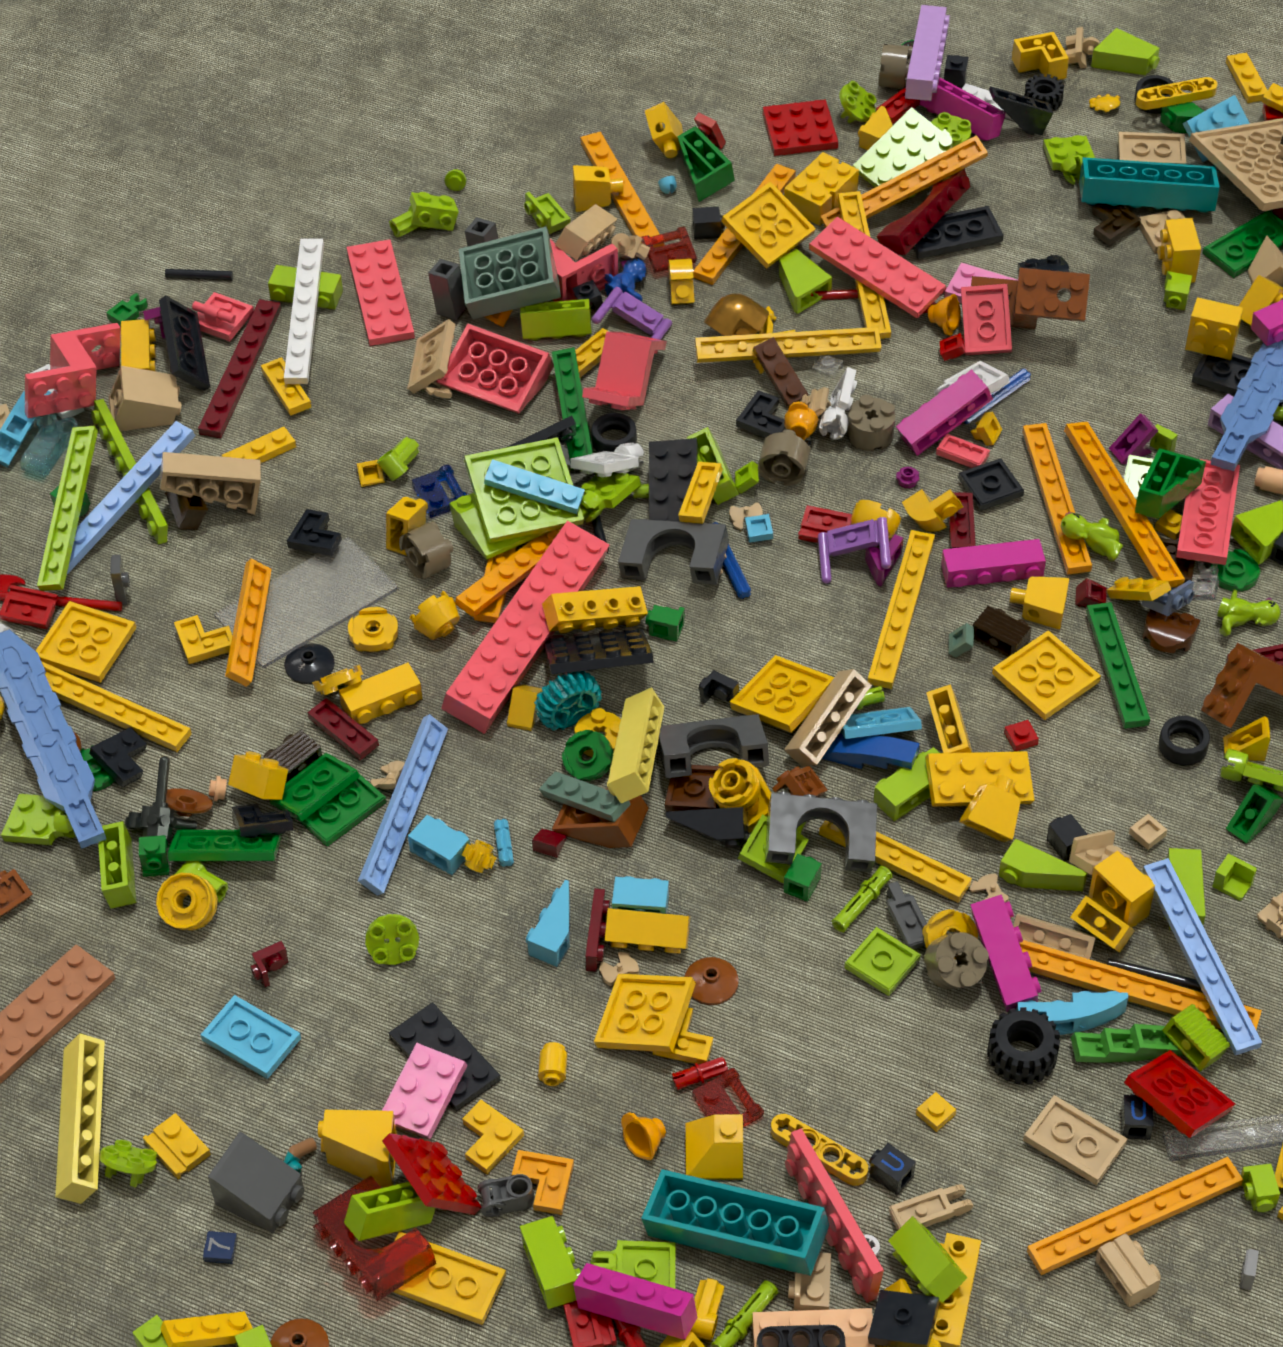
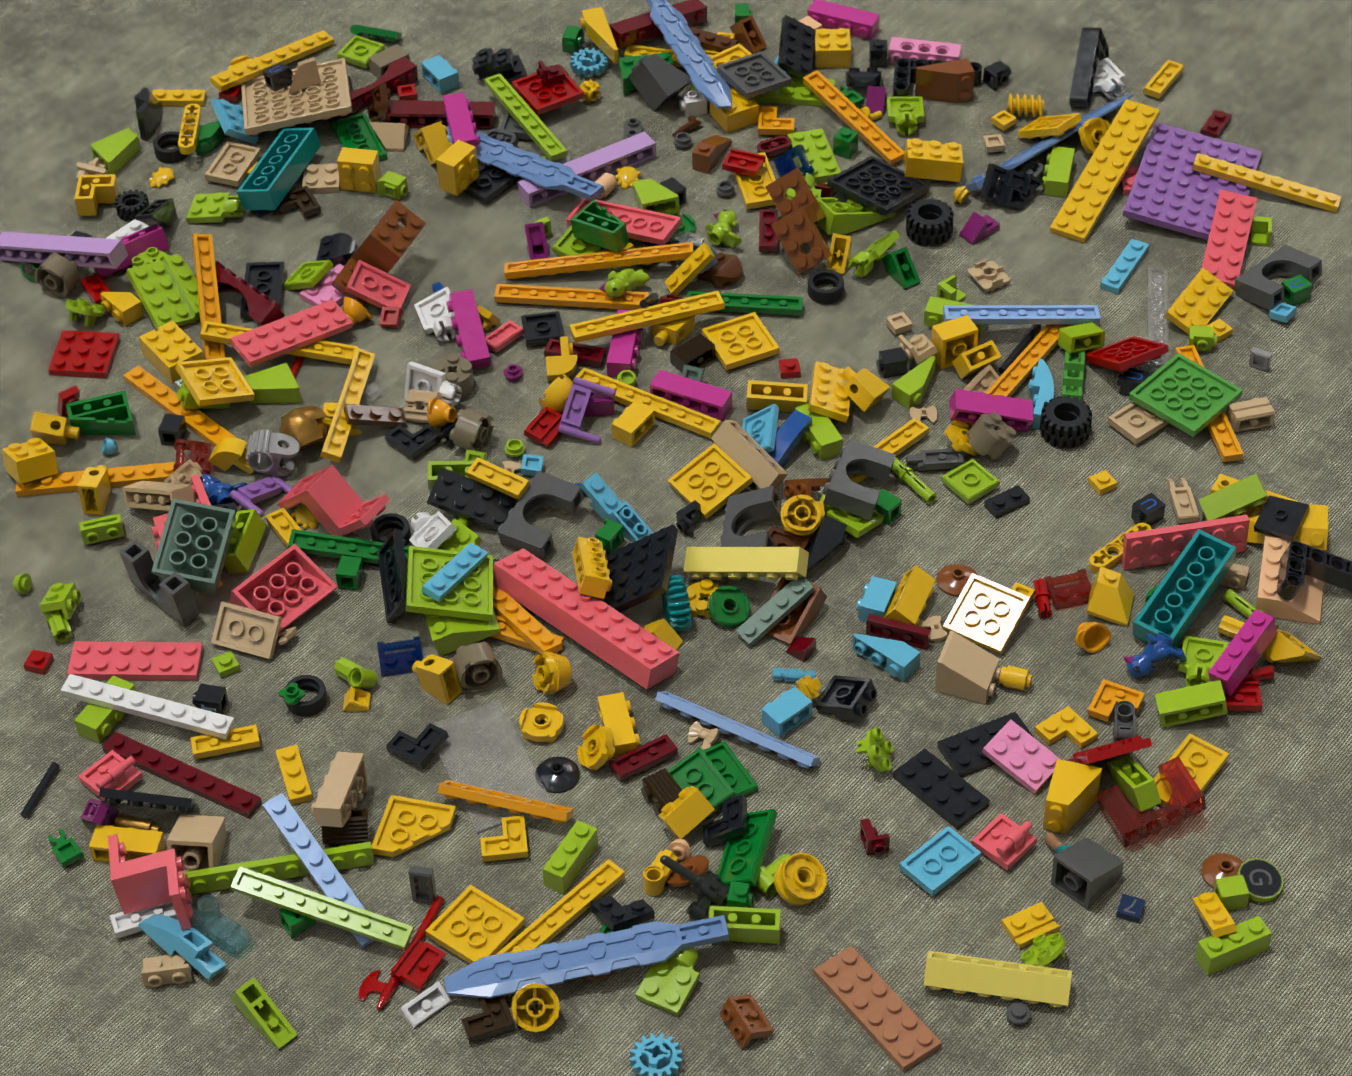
camera: 75 degrees left, 5 degrees down
(44, 1152) = (1018, 1014): none -> dark grey plate
(162, 357) = (126, 821): none -> pearl gold cylinder
(186, 695) = (570, 857): none -> lime brick
(187, 777) = (657, 874): none -> yellow piece
(208, 556) = (409, 824): none -> yellow plate
(291, 1096) = (1005, 841): none -> coral plate
(335, 359) = (211, 698): none -> black brick
(346, 412) = (292, 694): none -> green plate
(360, 223) = (38, 661): none -> red plate
(364, 1021) = (941, 788): none -> black plate
(366, 442) = (313, 706): none -> black tyre
(393, 359) = (225, 664): none -> lime plate
(475, 897) = (847, 697): none -> black plate
(542, 414) = (349, 572): none -> green brick
(544, 1004) = (966, 670): none -> tan slope
(613, 129) = (30, 460): none -> yellow brick
(622, 1206) = (1156, 650): none -> blue animal
(687, 300) = (266, 454): none -> light grey piece
(704, 616) = (610, 506): none -> medium azure slope
(783, 507) = (514, 448): none -> lime plate
(858, 603) = (633, 423): none -> yellow brick
(863, 1009) = (1007, 501): none -> black plate
(928, 646) = (692, 394): none -> dark pink brick
(934, 580) = (627, 377): none -> lime plate
(990, 260) = (308, 275): none -> lime plate
(1030, 566) = (646, 316): none -> yellow plate
(1068, 564) = (648, 300): none -> black bar
(1124, 1177) = (1185, 394): none -> bright green plate
(1195, 57) = (148, 113): none -> black slope

